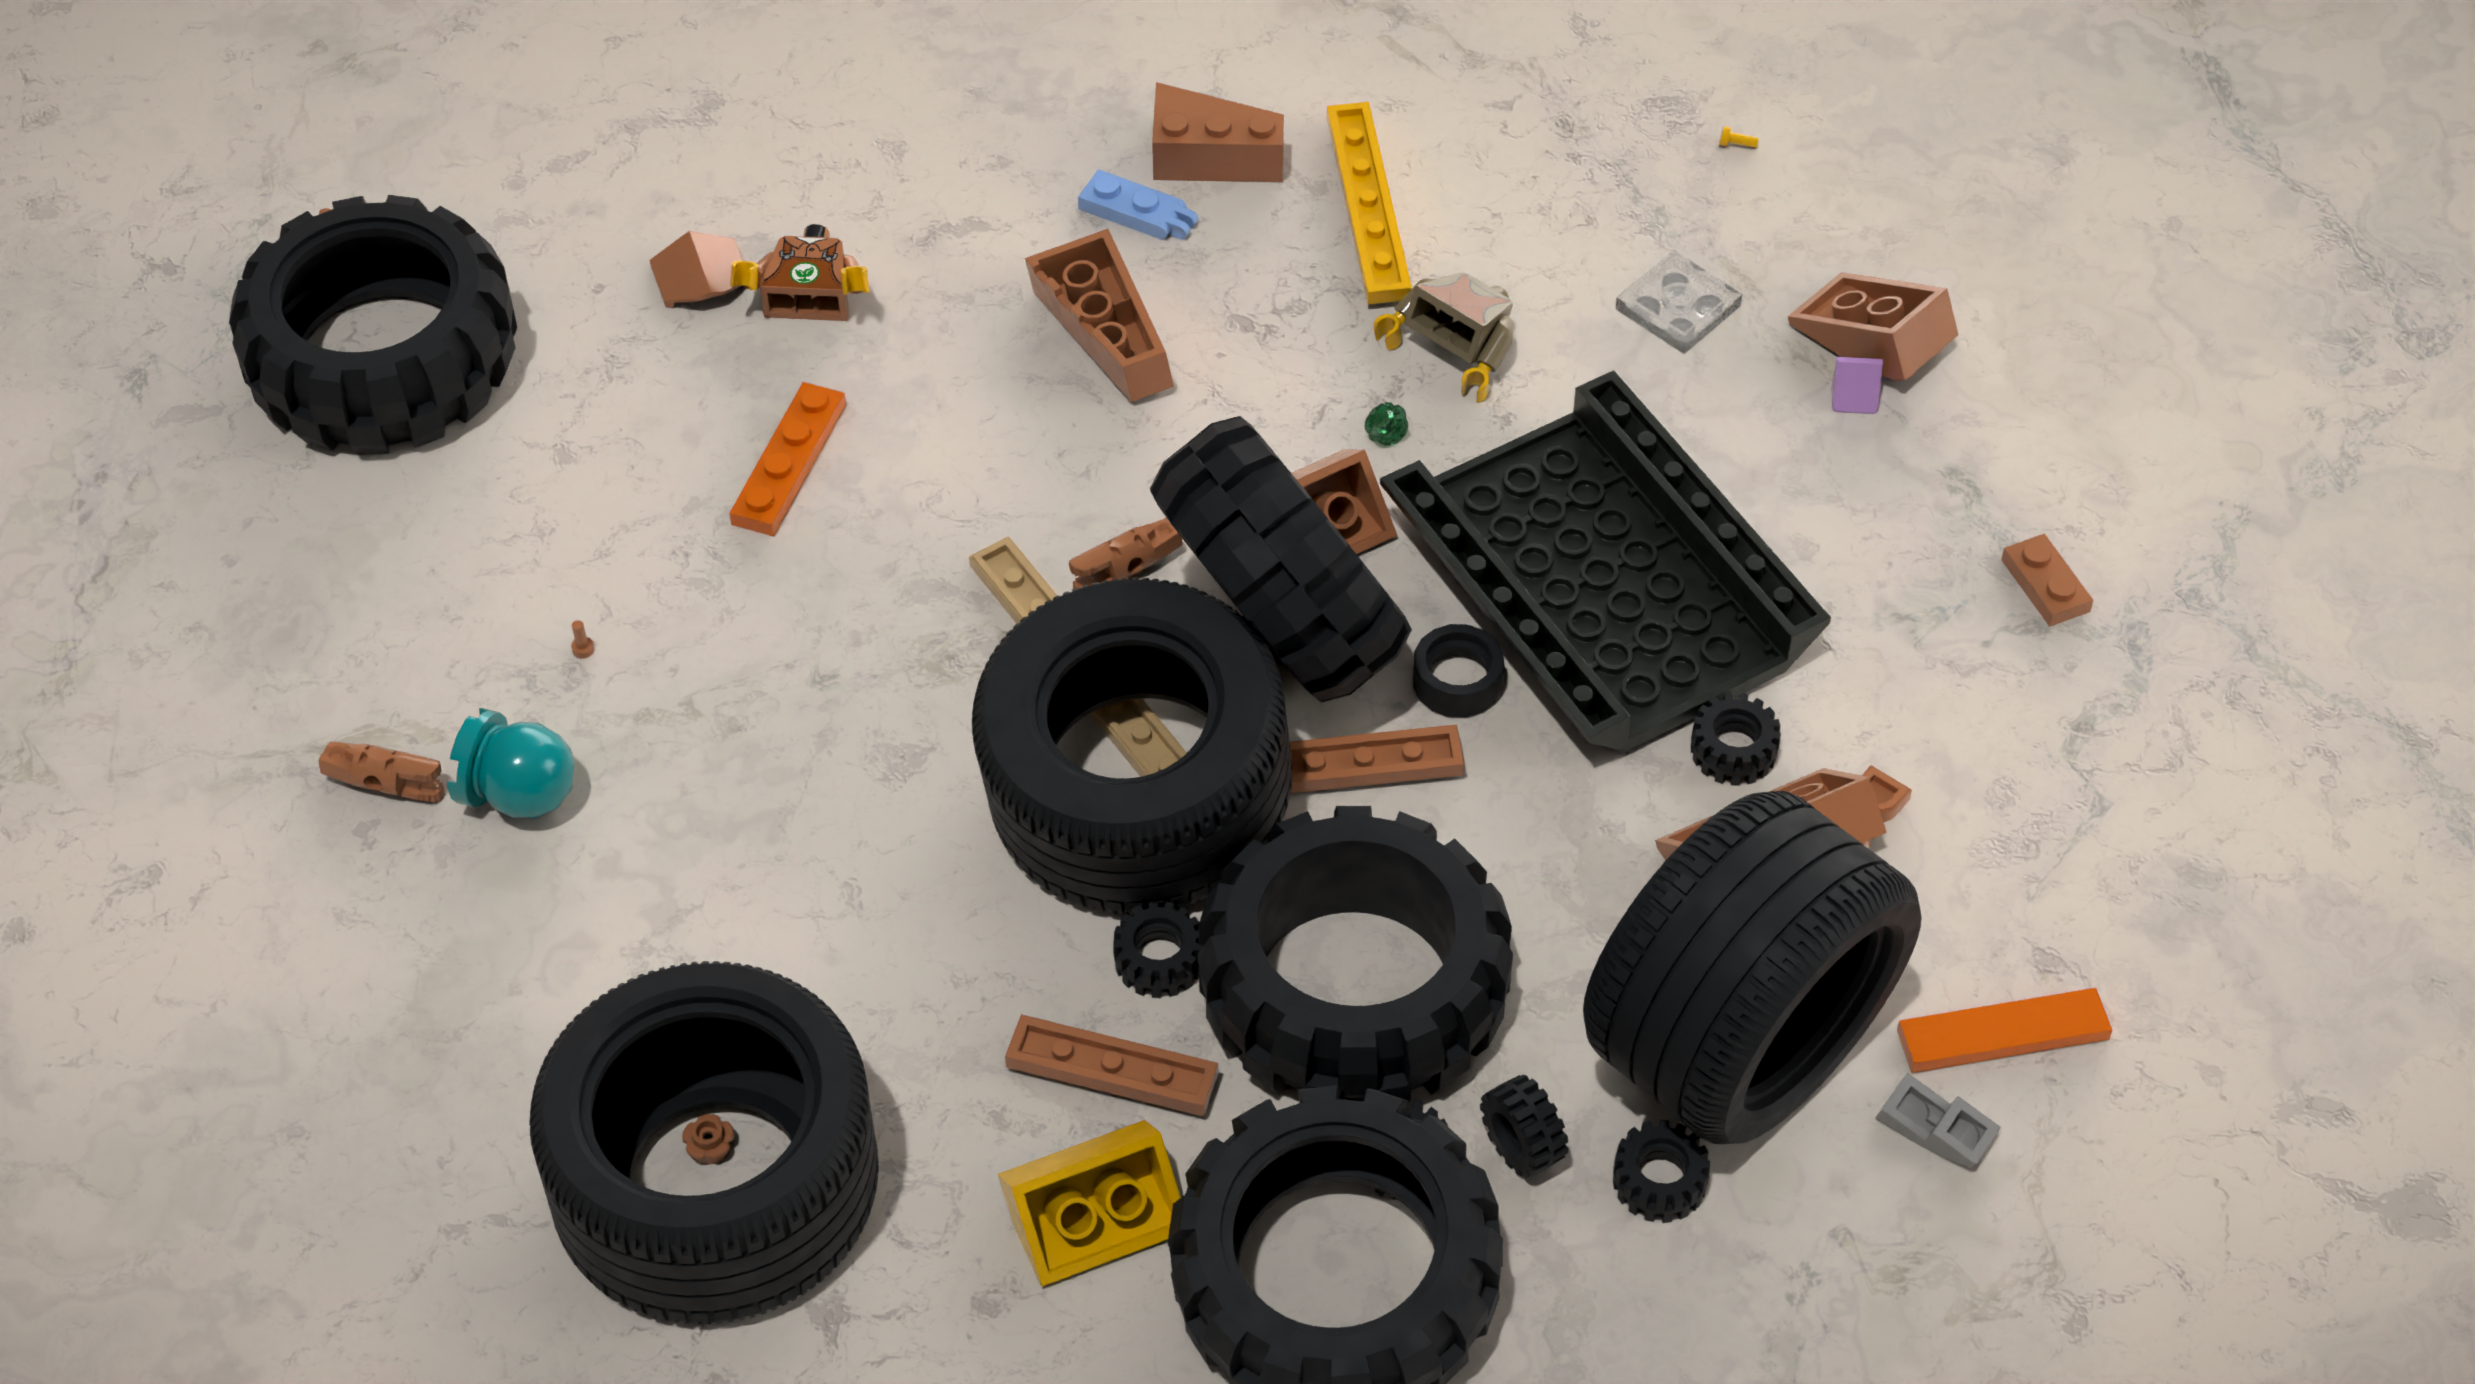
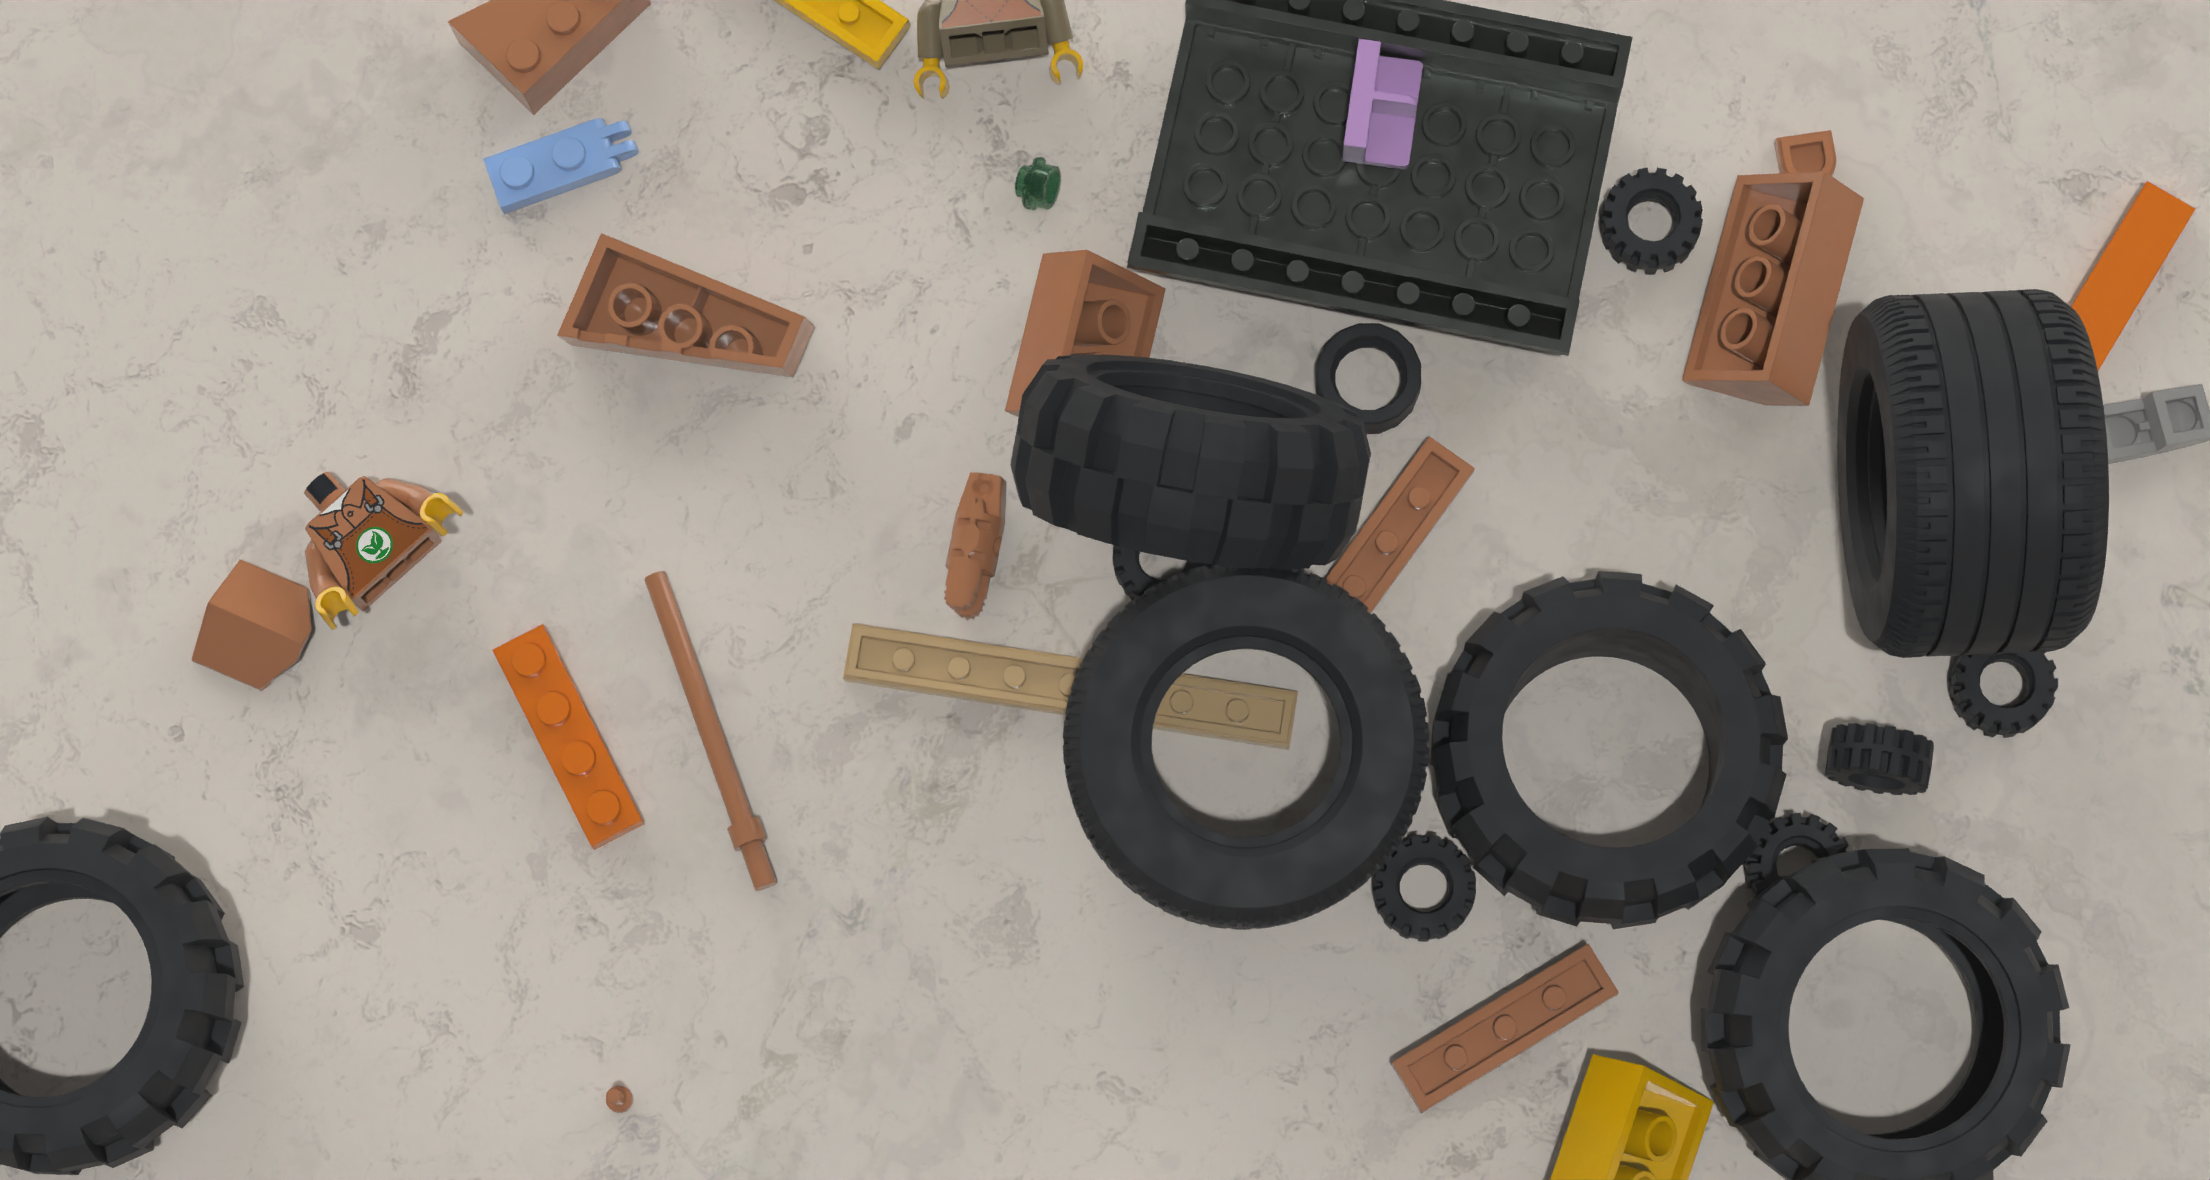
camera: 40 degrees left, 25 degrees up
(821, 578) = (746, 831): none -> nougat bar
(1630, 534) = (1381, 108): none -> lavender panel

